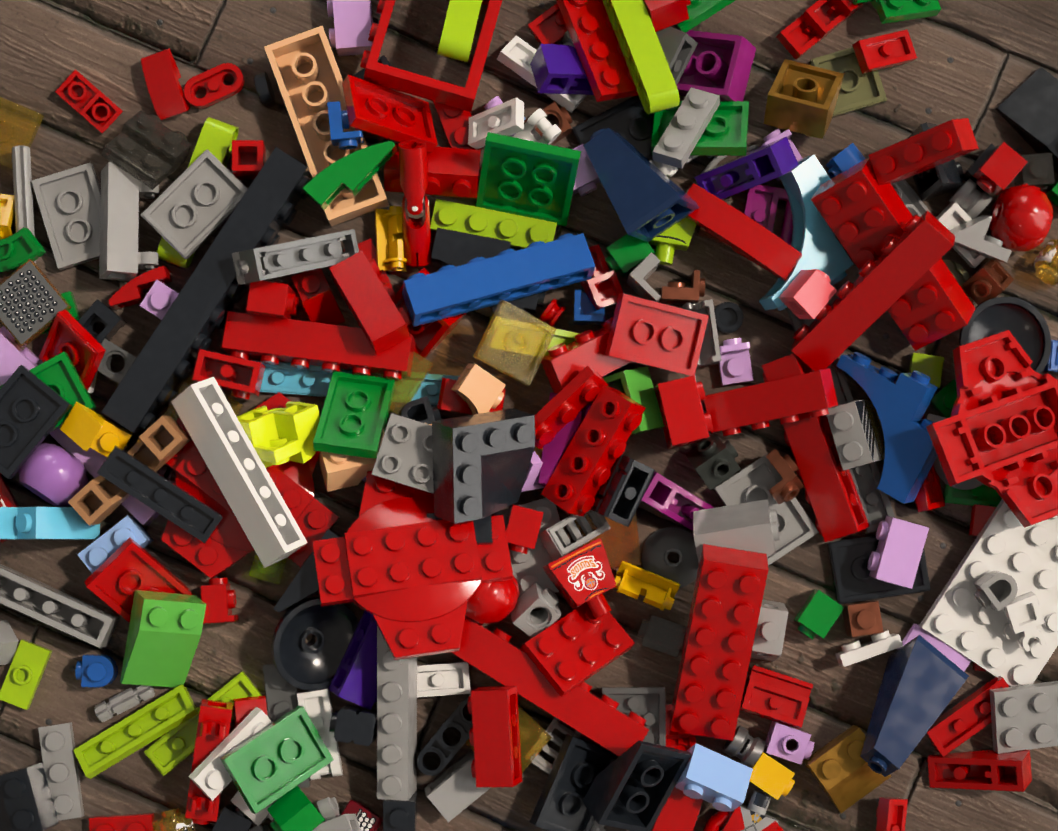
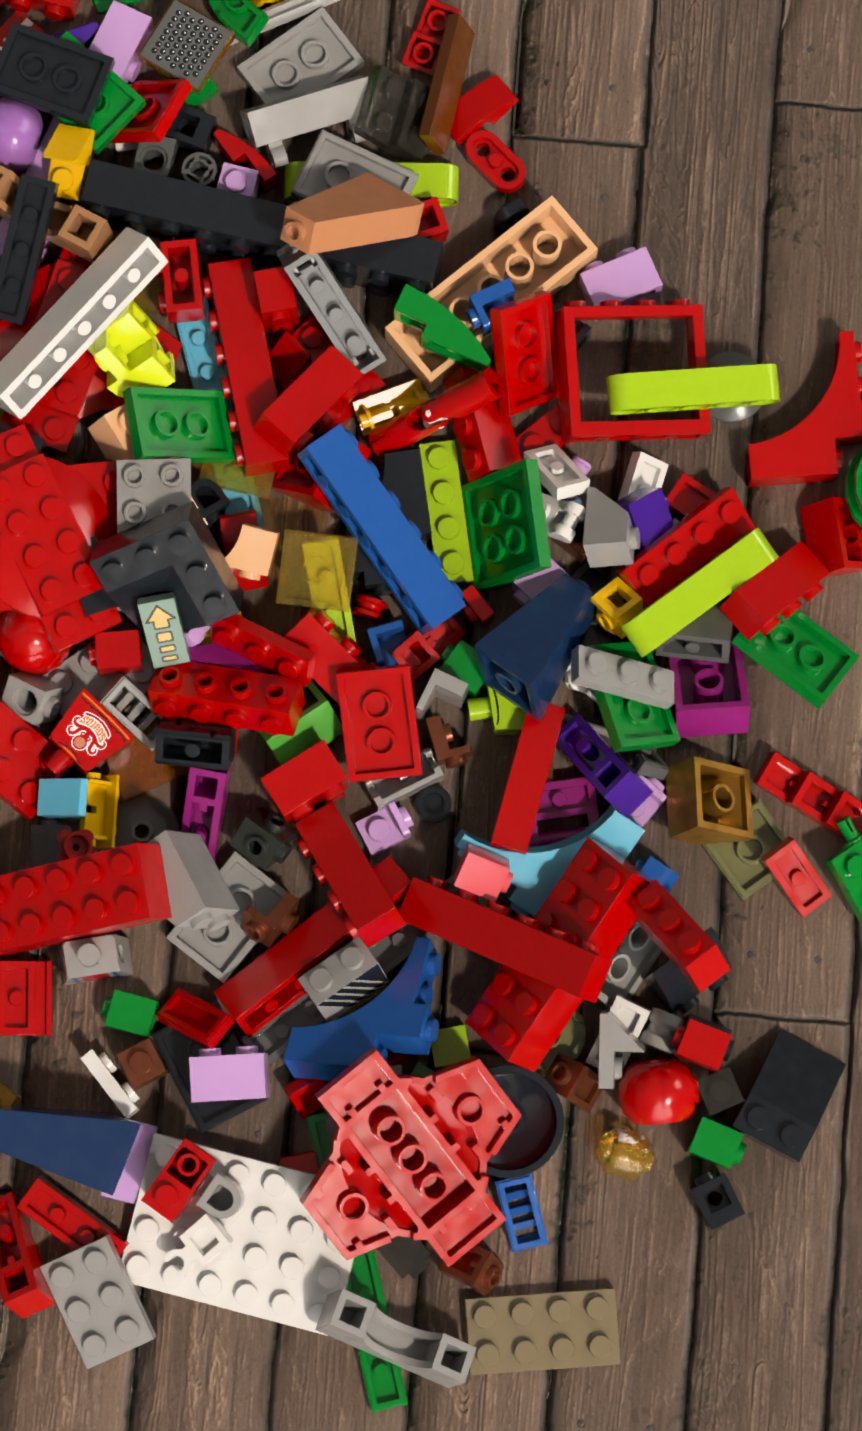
camera: 75 degrees right, 5 degrees down
(136, 101) = (446, 84): none -> reddish brown tile
(143, 330) = (196, 162): none -> dark grey wheel
(232, 210) = (351, 216): none -> nougat slope
(525, 482) = (163, 630): none -> tile
(565, 96) = (608, 532): none -> light grey slope
(583, 225) = (476, 607): none -> red plate
(628, 117) = (612, 610): none -> yellow brick
(630, 611) = (62, 798): none -> medium azure slope
(681, 610) = (68, 839): none -> red plate
(758, 134) = (650, 764): none -> dark grey tile
(841, 564) = (195, 1018): none -> red tile
(974, 619) = (179, 1180): none -> red slope

